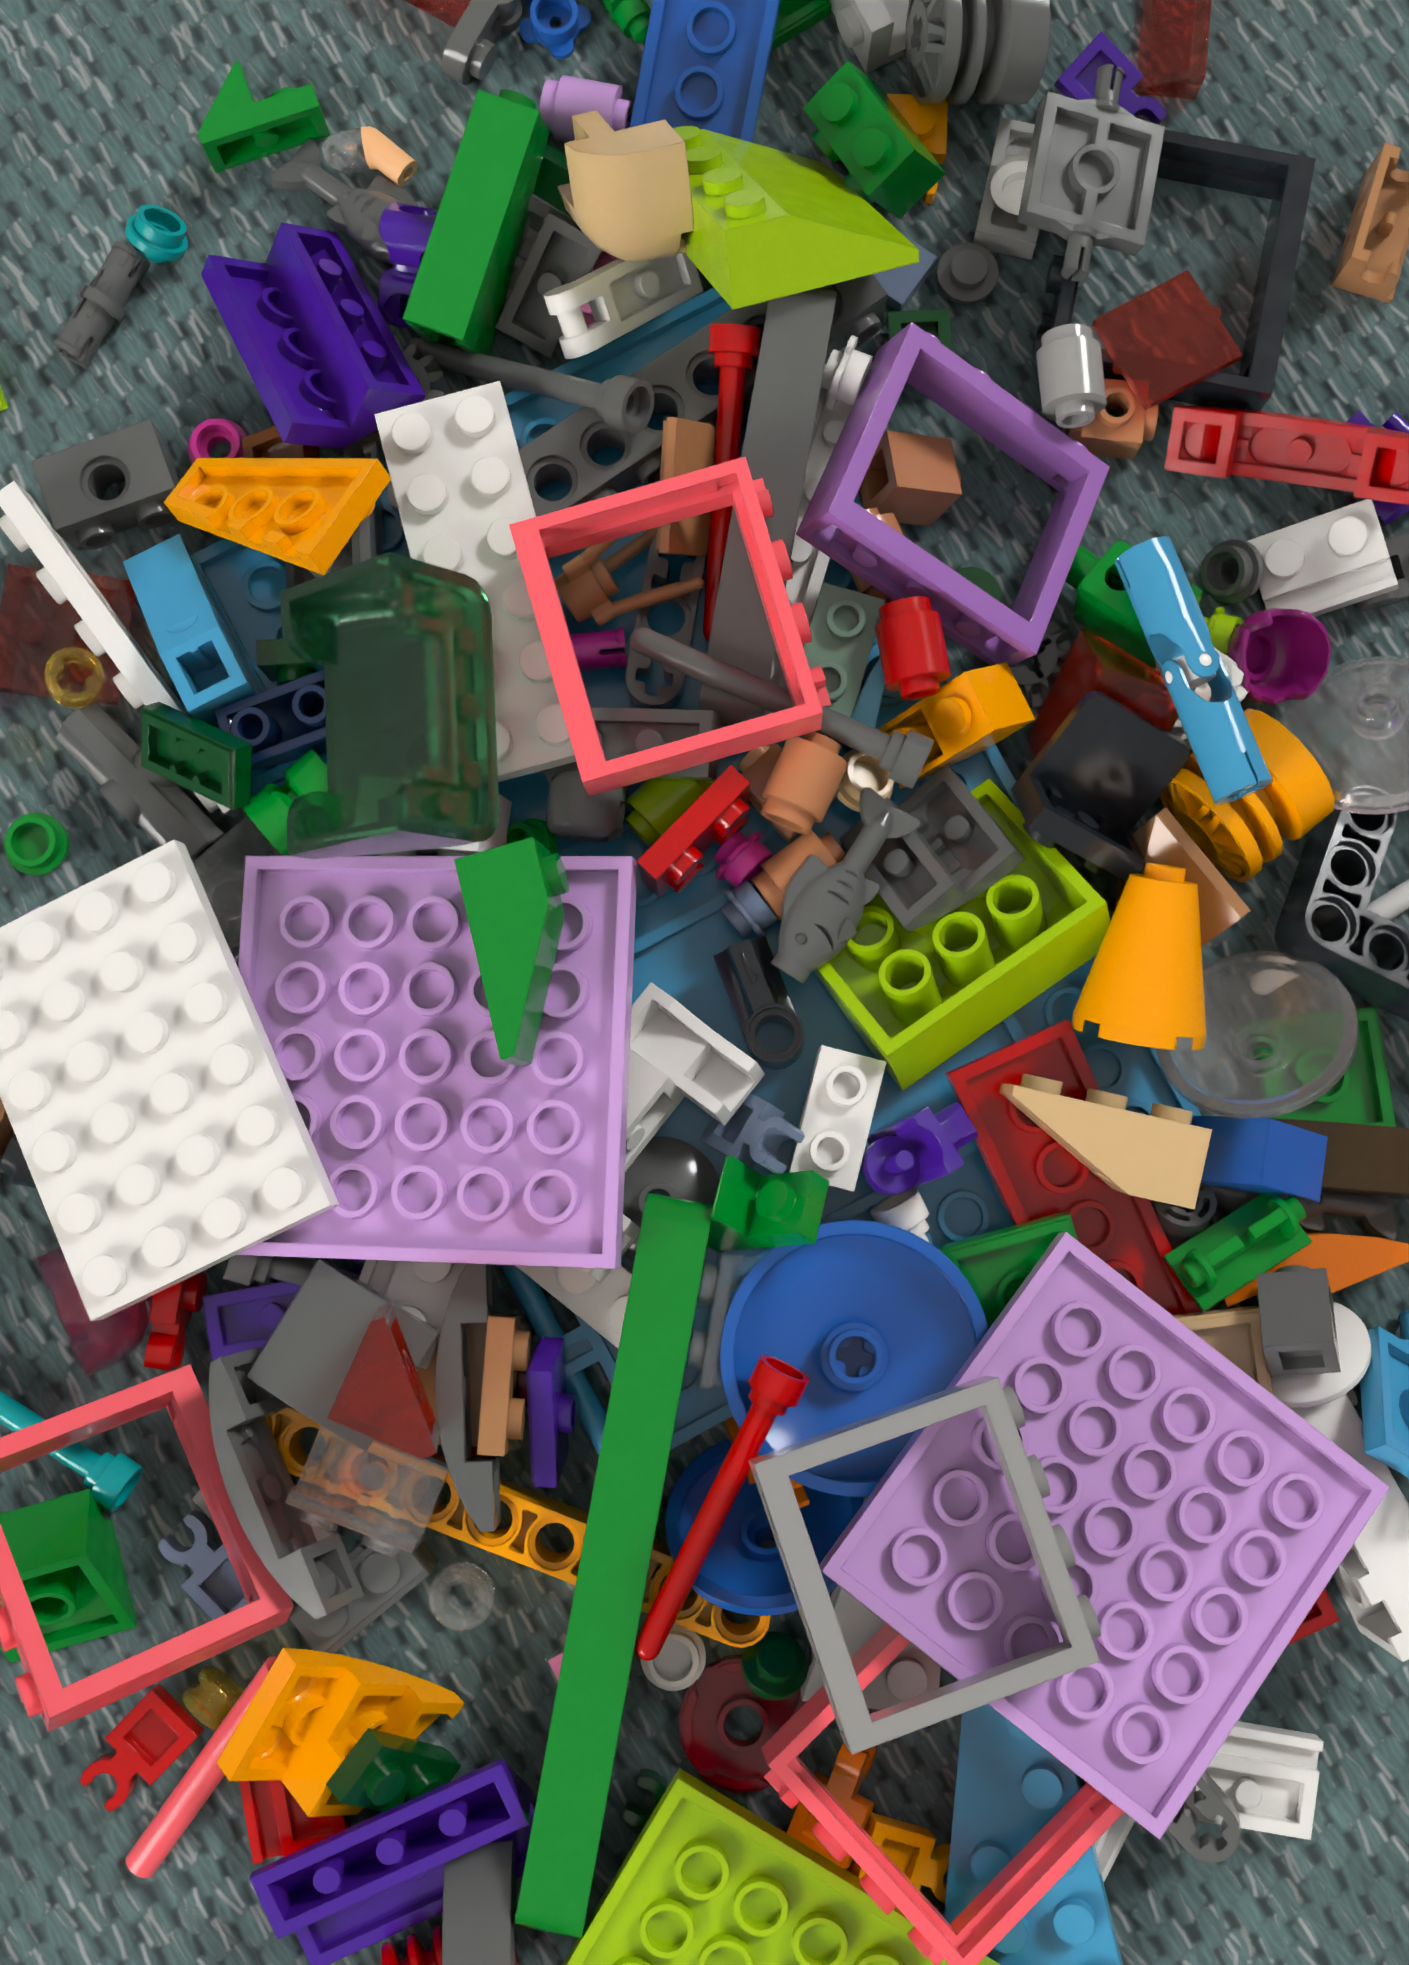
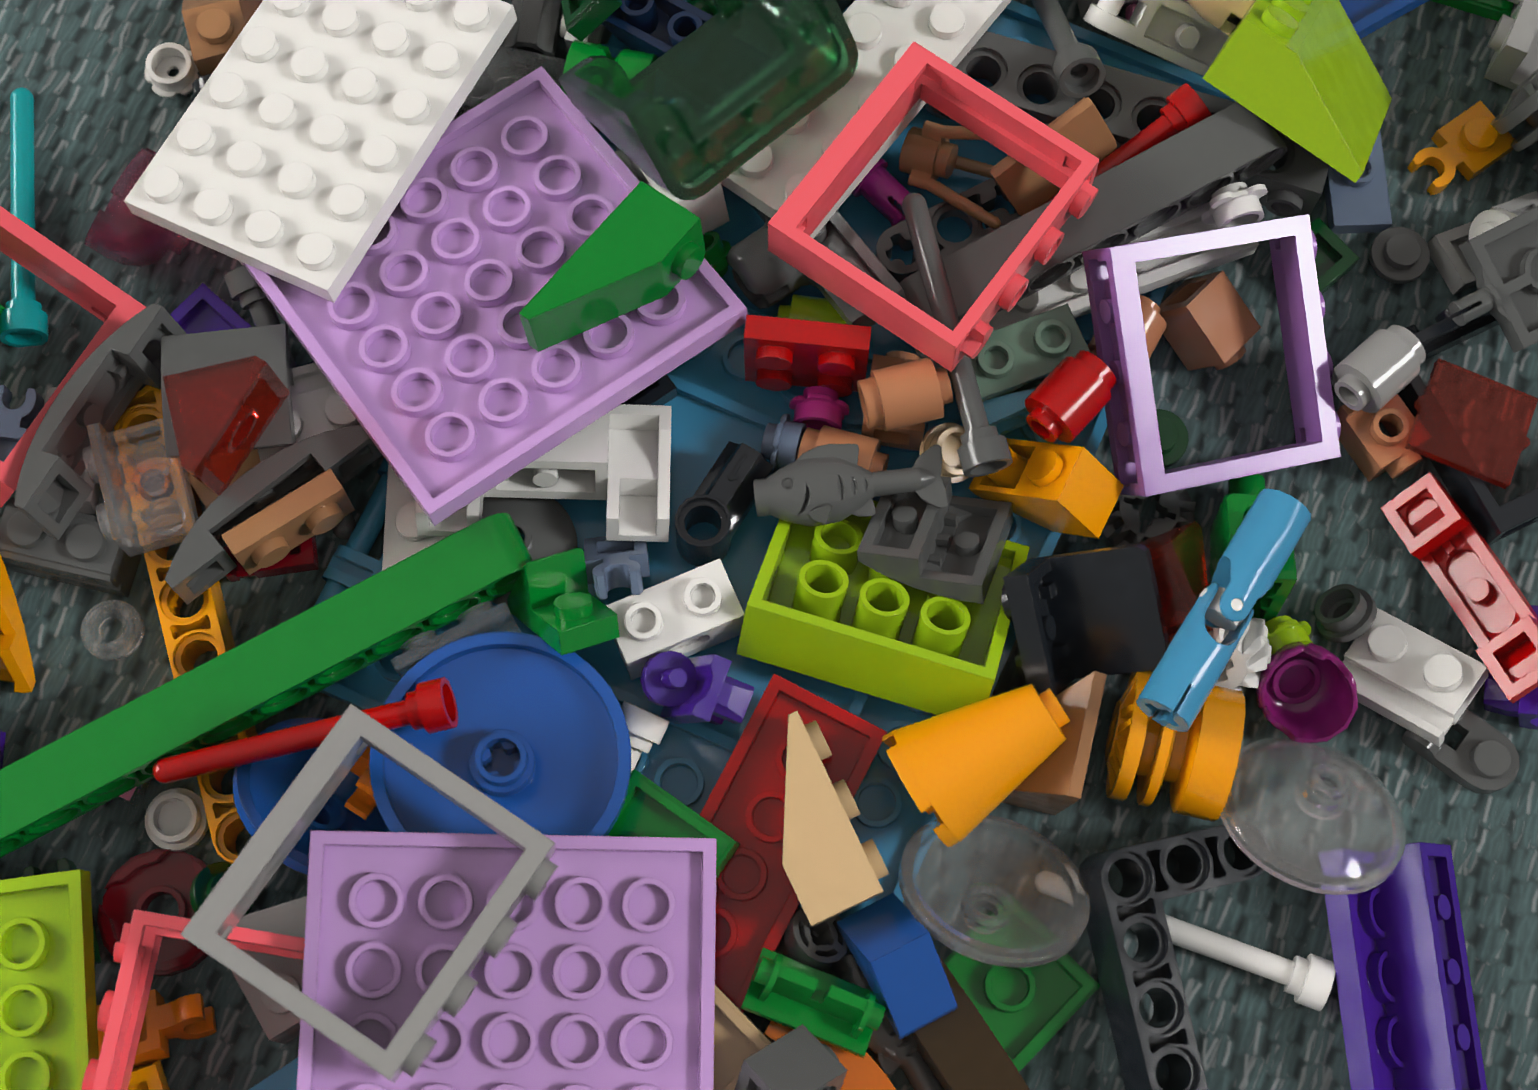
camera: 50 degrees right, 10 degrees down
(169, 1315) = (179, 269): red plate -> none
(550, 1412) = (295, 580): dark purple plate -> none
(872, 140) = (1431, 110): green brick -> none

